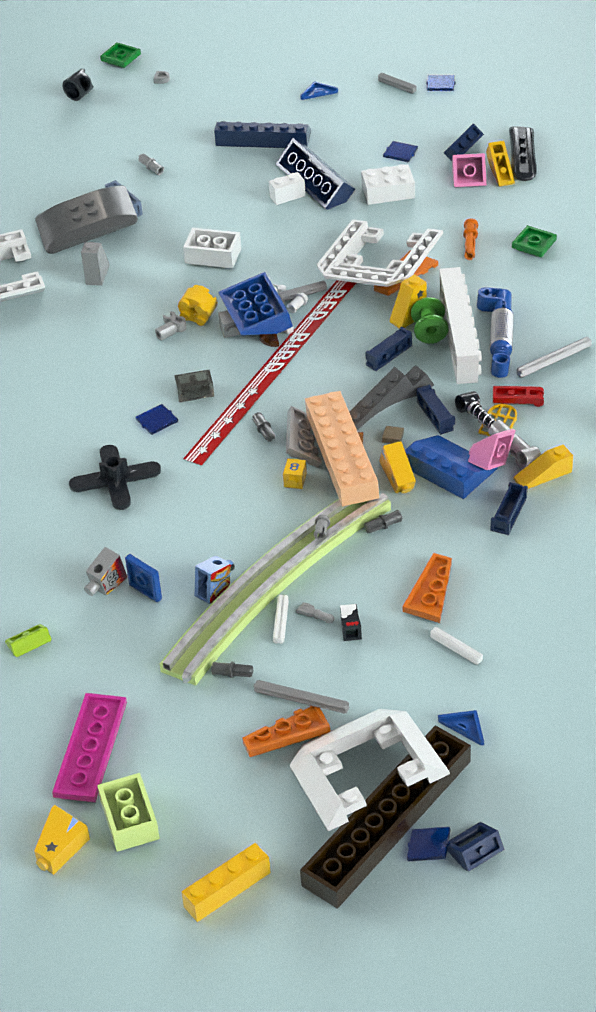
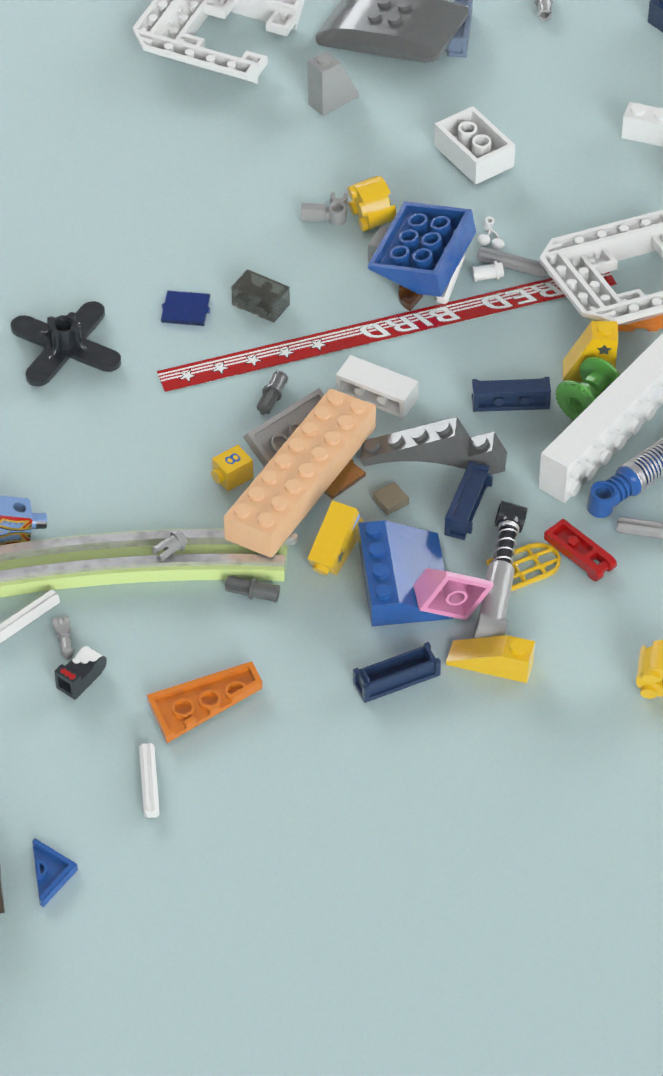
camera: 40 degrees right, 5 degrees up
(315, 385) = (377, 386): none -> white brick

